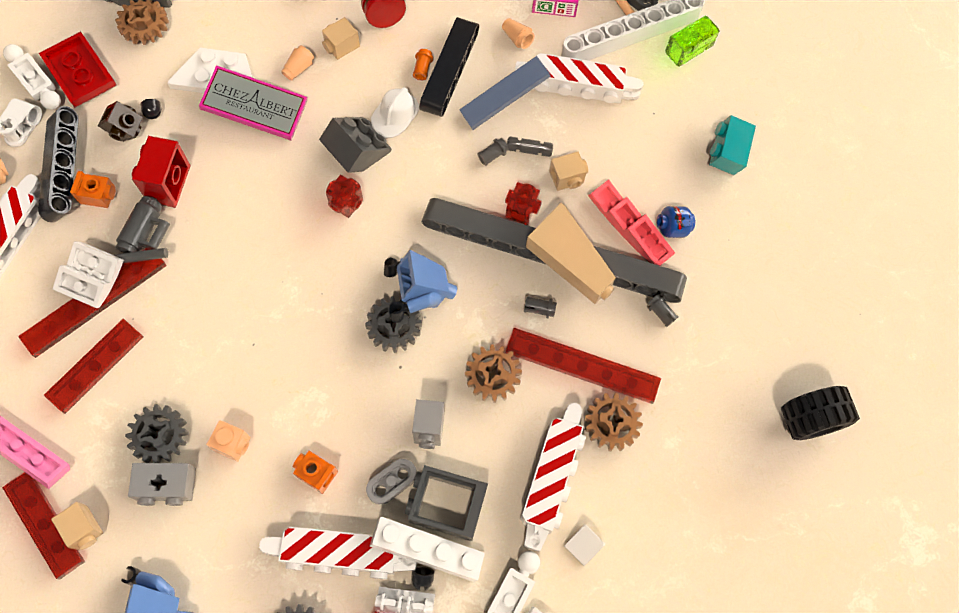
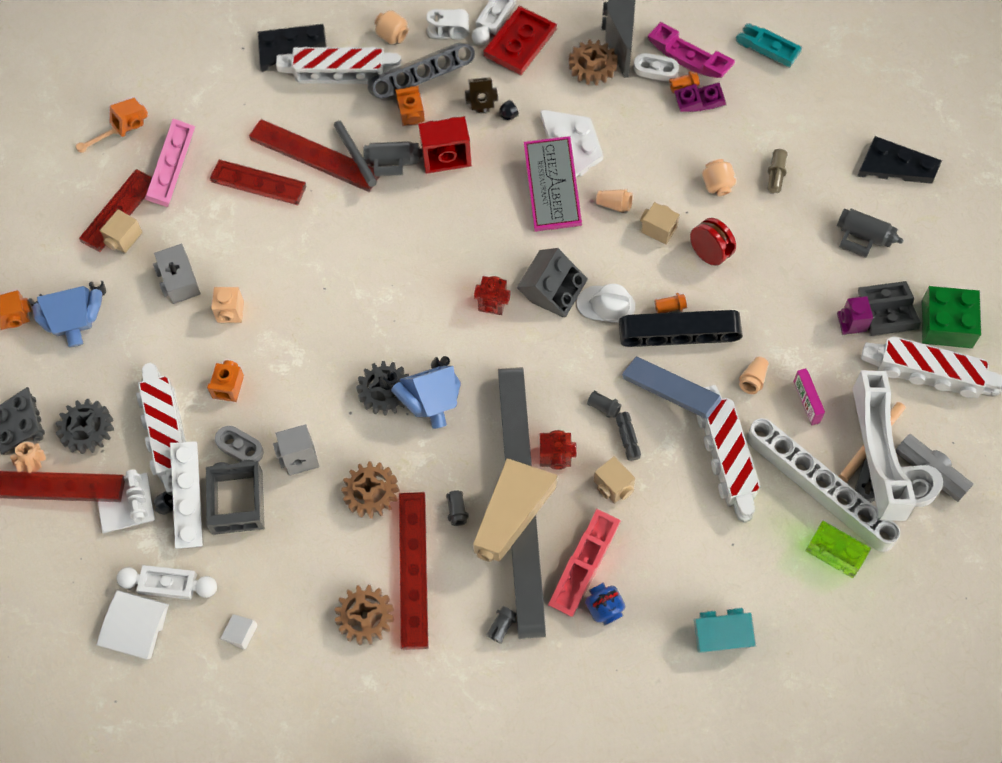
camera: 75 degrees right, 5 degrees down
(88, 274) = (330, 138): white slope -> none
(145, 429) = (215, 251): dark grey gear -> none
(551, 477) = (291, 577): white hinge -> none

